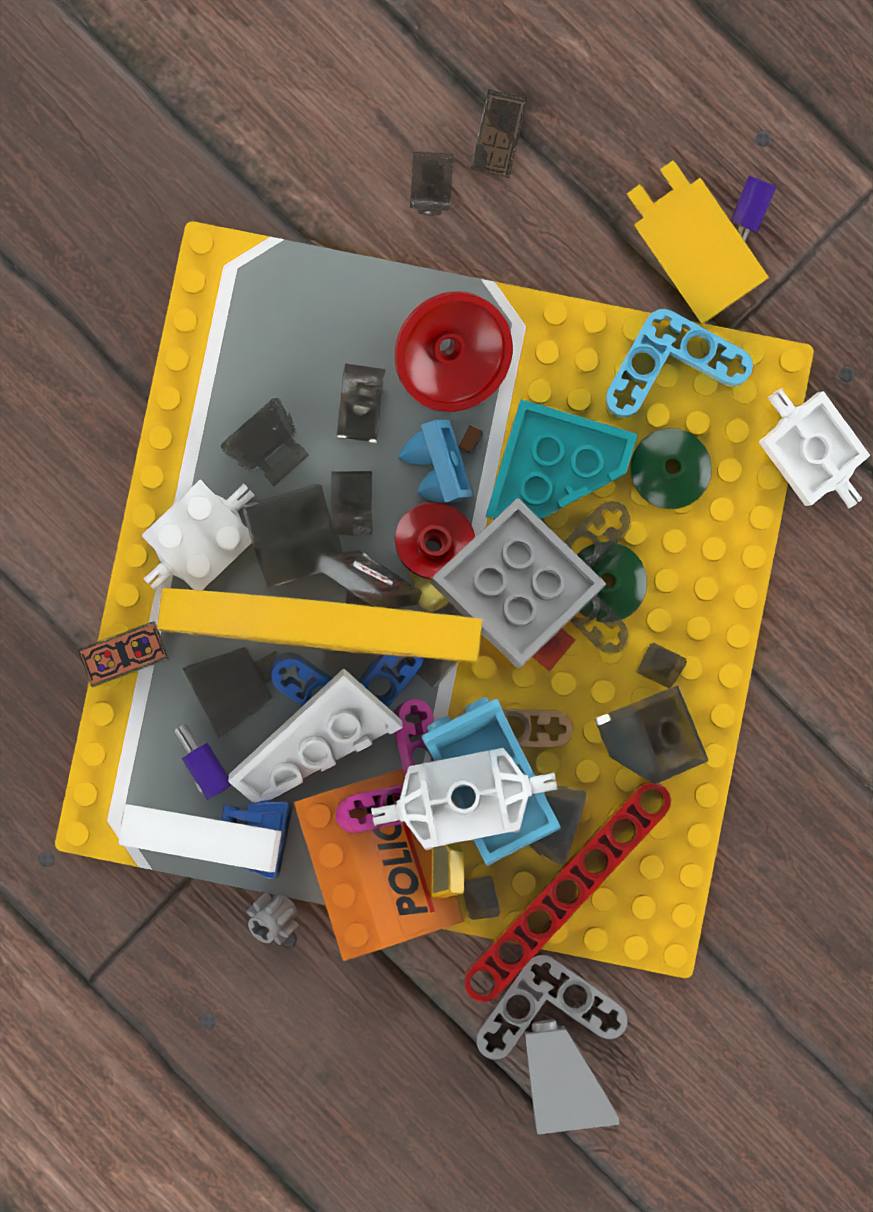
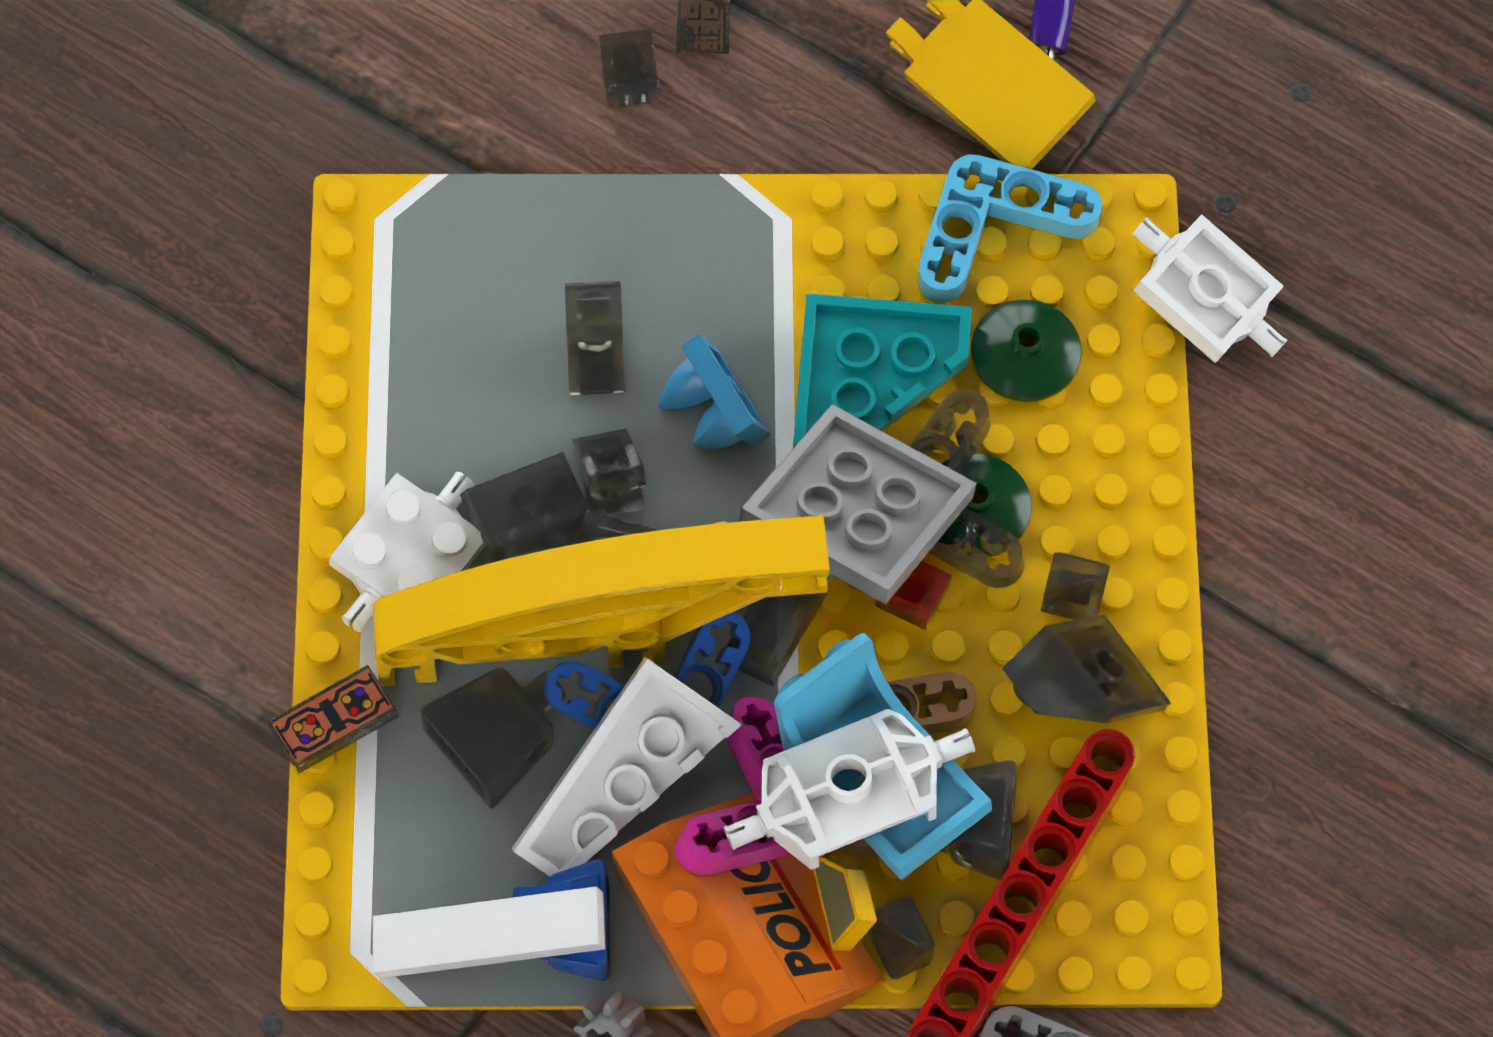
camera: 15 degrees left, 20 degrees down
(202, 764) = (474, 844): dark purple piece -> none
(261, 438) = (469, 408): clear smoke piece -> none
(431, 523) = (719, 483): red dish -> none
(470, 439) = (750, 365): reddish brown piece -> none
(471, 364) = (733, 243): red dish -> none

